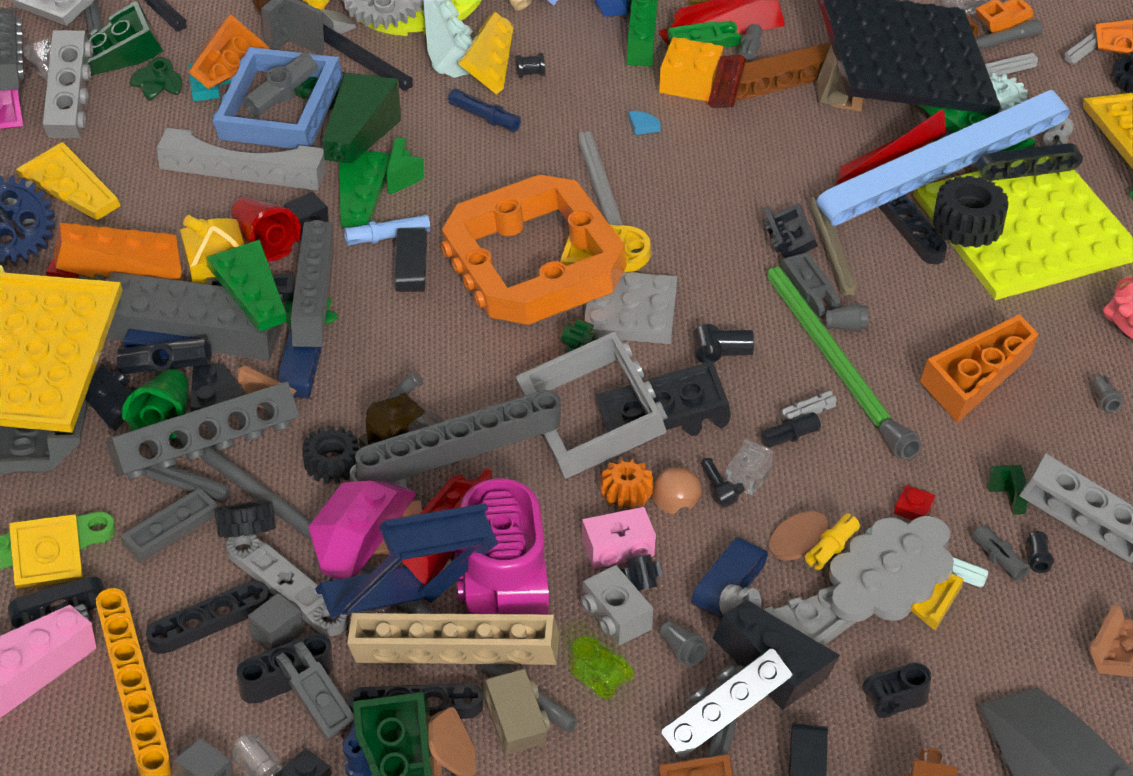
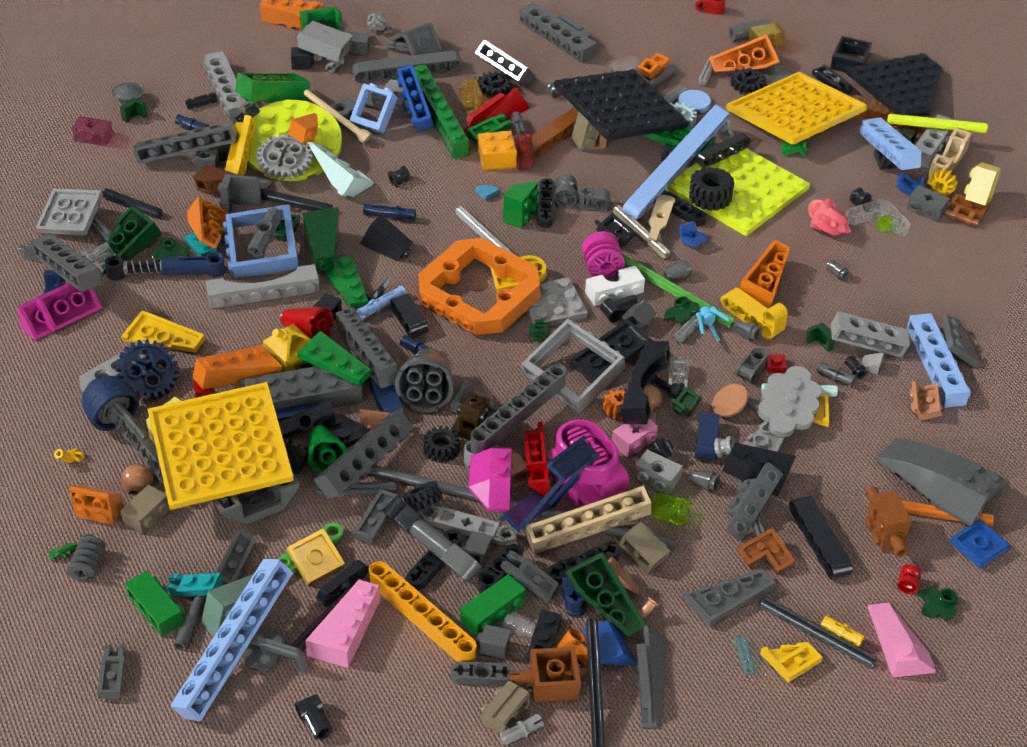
camera: 25 degrees left, 0 degrees up
(65, 47) = (128, 297): light grey brick -> none
(195, 108) = (211, 264): none -> piece
(202, 551) = (416, 526): none -> dark grey piece
(242, 710) = (493, 604): none -> green brick
(361, 353) = (425, 381): none -> dark grey cone
(393, 213) = (378, 292): none -> black bar
(393, 308) = (412, 344): none -> dark blue pin
(403, 168) = (365, 262): green slope -> none
(449, 145) = (386, 239): none -> black slope
(490, 53) = (370, 174): yellow wing -> none
(632, 491) = (653, 359): none -> black arch
(671, 150) = (520, 203): none -> green slope
(722, 163) = (546, 202): none -> black beam
(730, 515) = (686, 402): none -> dark green bracket
(741, 259) = (602, 255): none -> dark pink wheel
(742, 364) = (640, 314): none -> dark grey brick
(753, 153) = (565, 191): none -> dark grey wheel
(760, 313) = (629, 283): none -> white arch
(789, 178) = (595, 199): none -> dark grey piece
(791, 430) = (687, 344): black axle -> none
(810, 282) = (645, 257): dark grey hinge -> none
(813, 380) = (681, 310): none -> dark green plate
(832, 541) = (754, 396): yellow pin -> none
(847, 398) = (707, 316): none -> medium azure plant
(872, 494) = (752, 364): none -> dark grey piece
(879, 221) = (661, 209): none -> tan piece
(899, 689) = (831, 463): black piece -> none
(903, 271) = (690, 235): none -> blue bracket
(915, 138) = (643, 167): red wedge -> none
(939, 432) = (749, 310): none -> yellow beam
(1040, 79) = (695, 98): none -> light blue tile
(1073, 555) = (872, 362): none -> light grey slope

